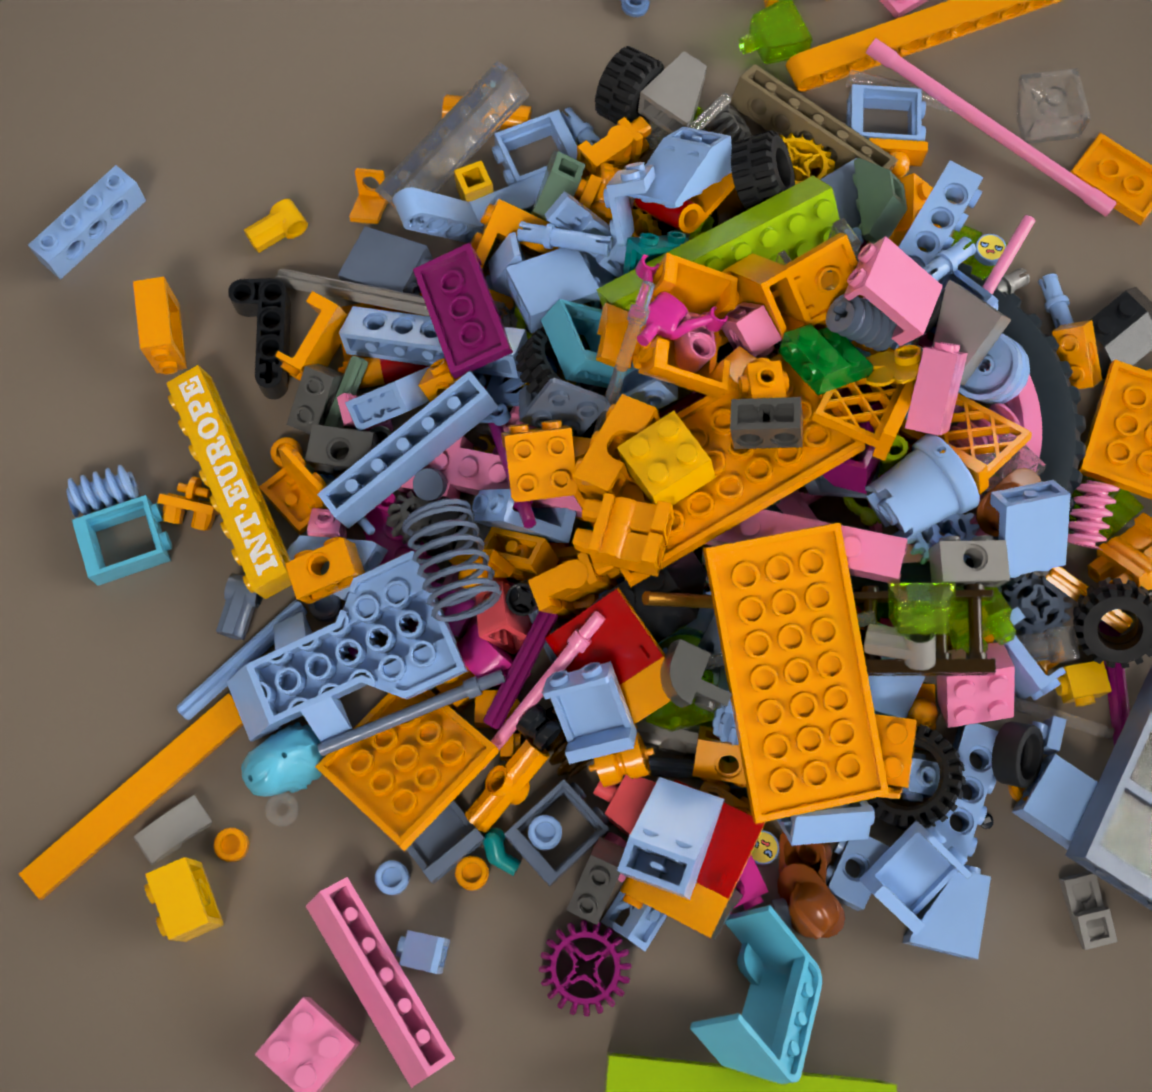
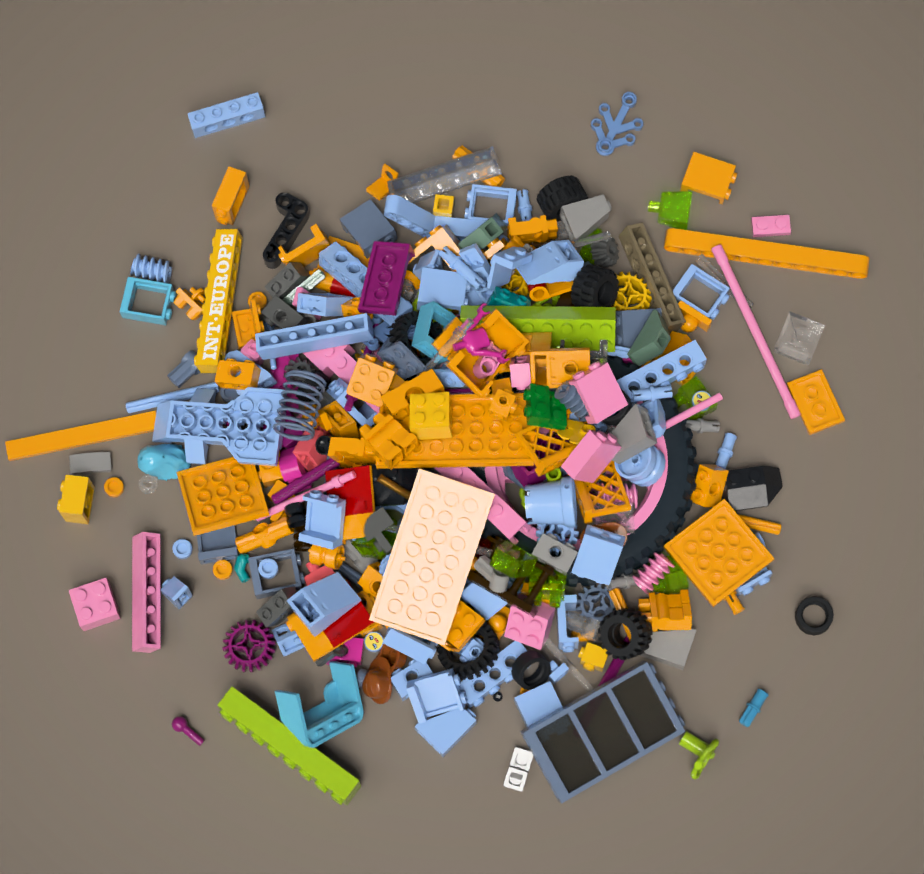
camera: 35 degrees right, 0 degrees up
(282, 222) = (329, 171): yellow piece -> none
(353, 291) = (339, 230): light grey axle -> none
(429, 484) = (316, 360): sand blue tile -> none
(471, 688) = (273, 476): sand blue bar -> none
(766, 423) = (489, 424): dark grey brick -> none

